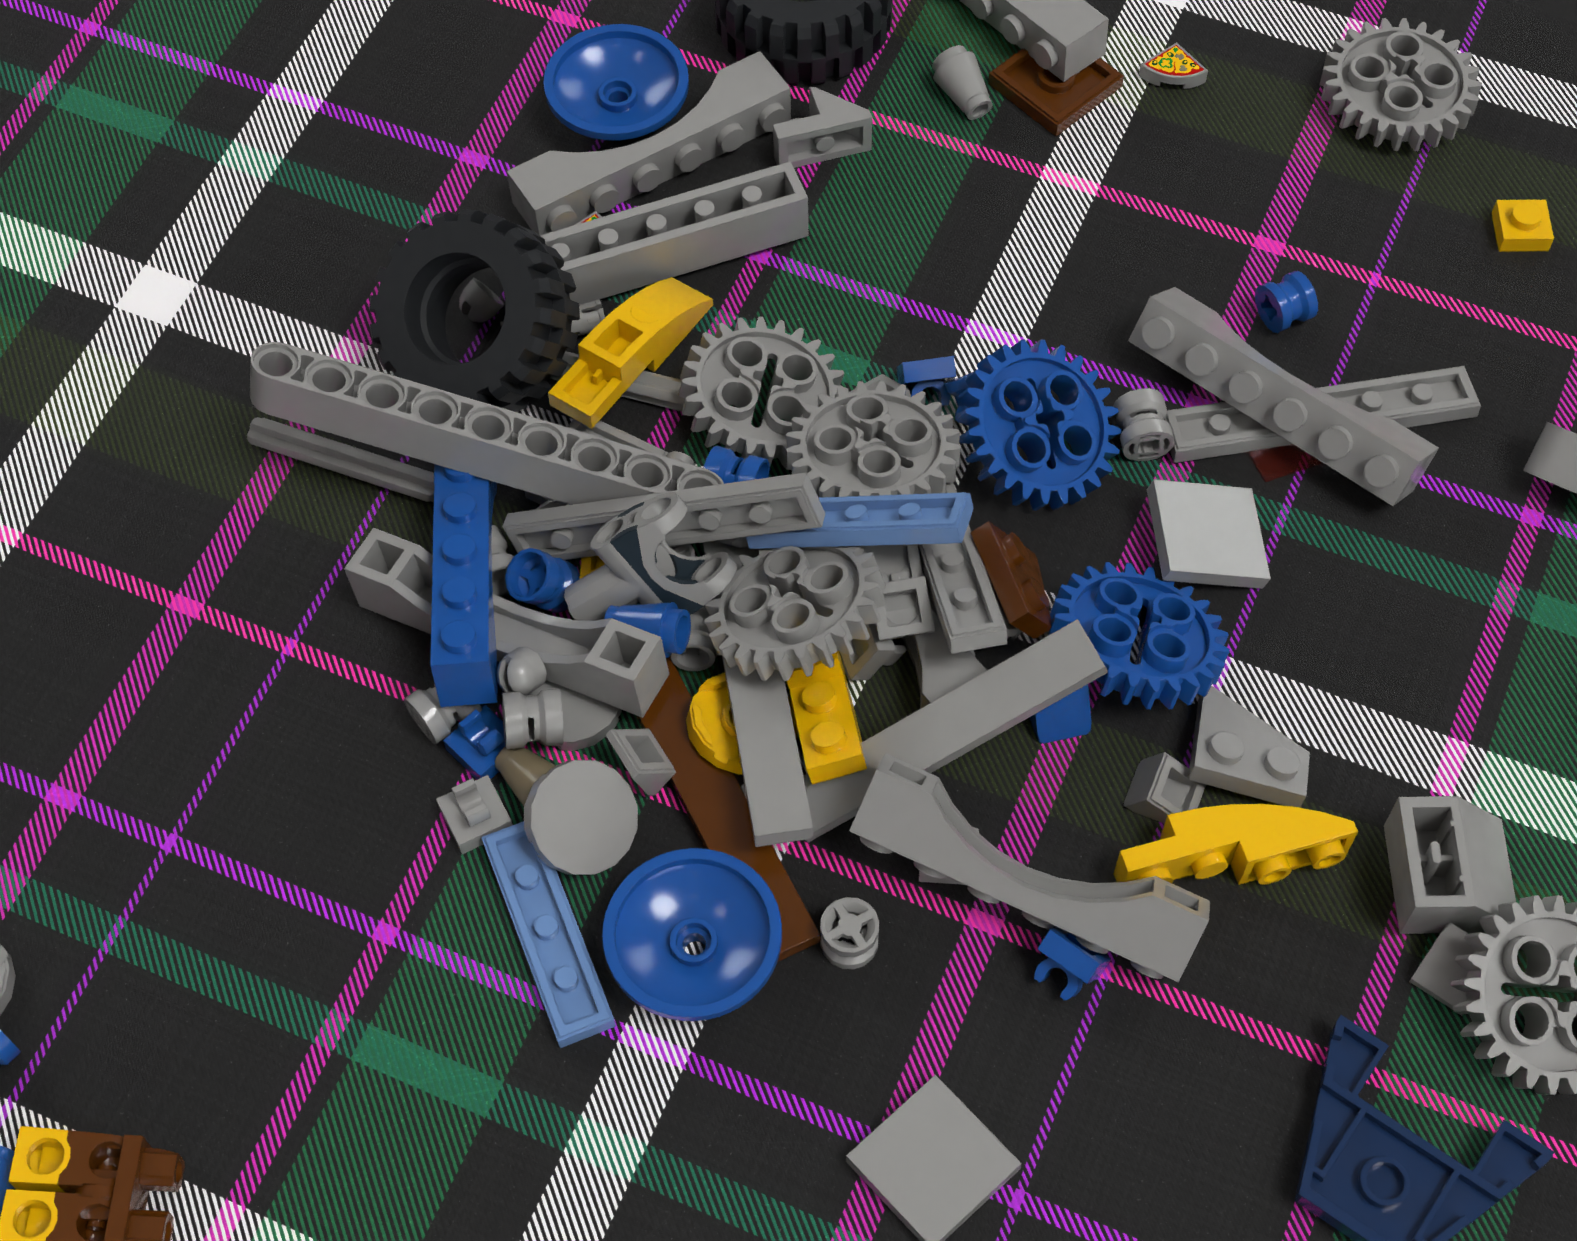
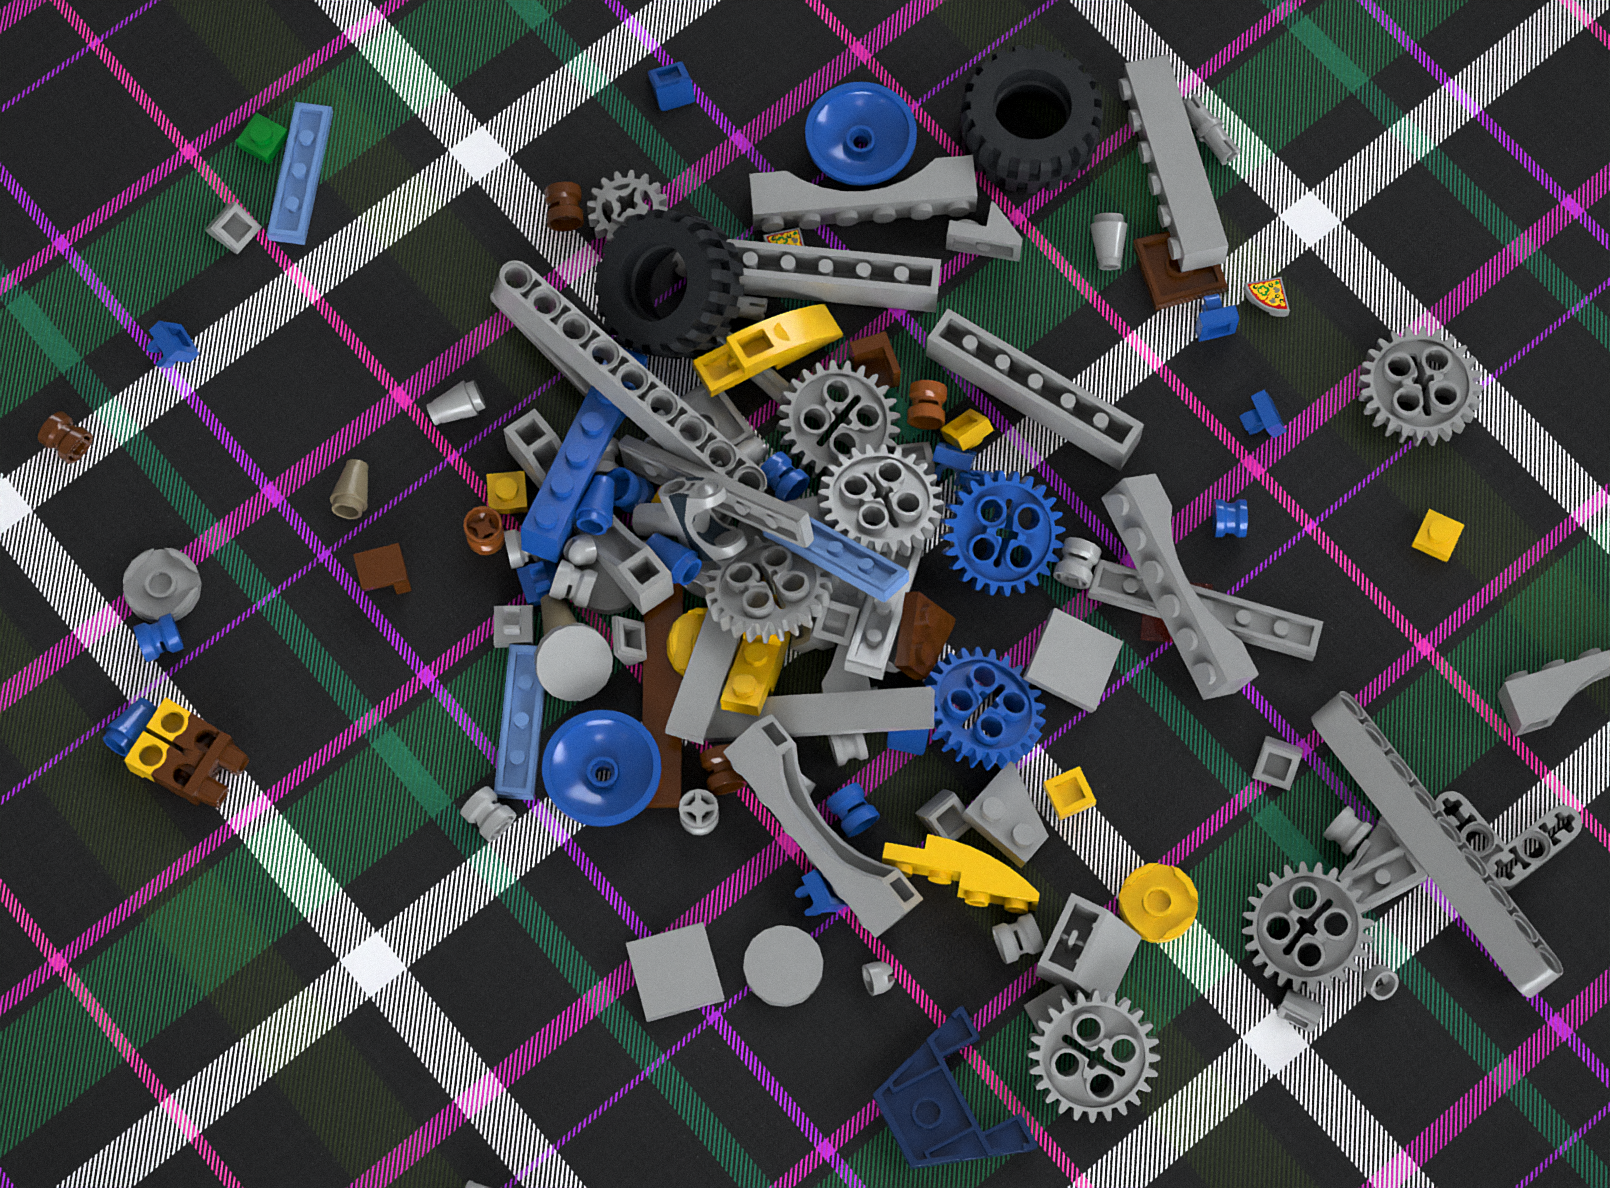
camera: 25 degrees right, 10 degrees up
(170, 743) = (351, 491): none -> dark tan cone
(260, 815) = (382, 568): none -> reddish brown panel
(265, 576) = (457, 403): none -> light grey cone
(287, 295) = (564, 207): none -> reddish brown wheel
(353, 269) = (622, 196): none -> light grey gear
(361, 132) = (671, 86): none -> blue slope
(367, 702) = (480, 523): none -> dark orange wheel
(384, 656) = (507, 492): none -> yellow plate
(516, 609) = (596, 508): none -> blue cone
(569, 1073) = (489, 815): none -> light grey wheel
(773, 300) = (877, 357): none -> reddish brown panel
(851, 863) = (722, 777): none -> reddish brown wheel
(861, 336) = (927, 403): none -> dark orange wheel
(923, 337) = (967, 430): none -> yellow plate
(978, 258) = (1034, 389): none -> light grey brick
(995, 760) = (847, 747): none -> light grey wheel
(1034, 833) = (852, 809): none -> blue wheel
(1073, 1082) = (783, 965): none -> light grey tile
(1134, 109) = (1215, 320): none -> blue tile
(1205, 1036) = (877, 977): none -> light grey hinge
(1253, 181) = (1263, 416): none -> blue tile
(1302, 689) = (1069, 793): none -> yellow plate
(1355, 895) = (1018, 938): none -> light grey wheel
(1491, 767) = (1158, 902): none -> yellow tile
(1518, 544) = (1277, 763): none -> light grey slope

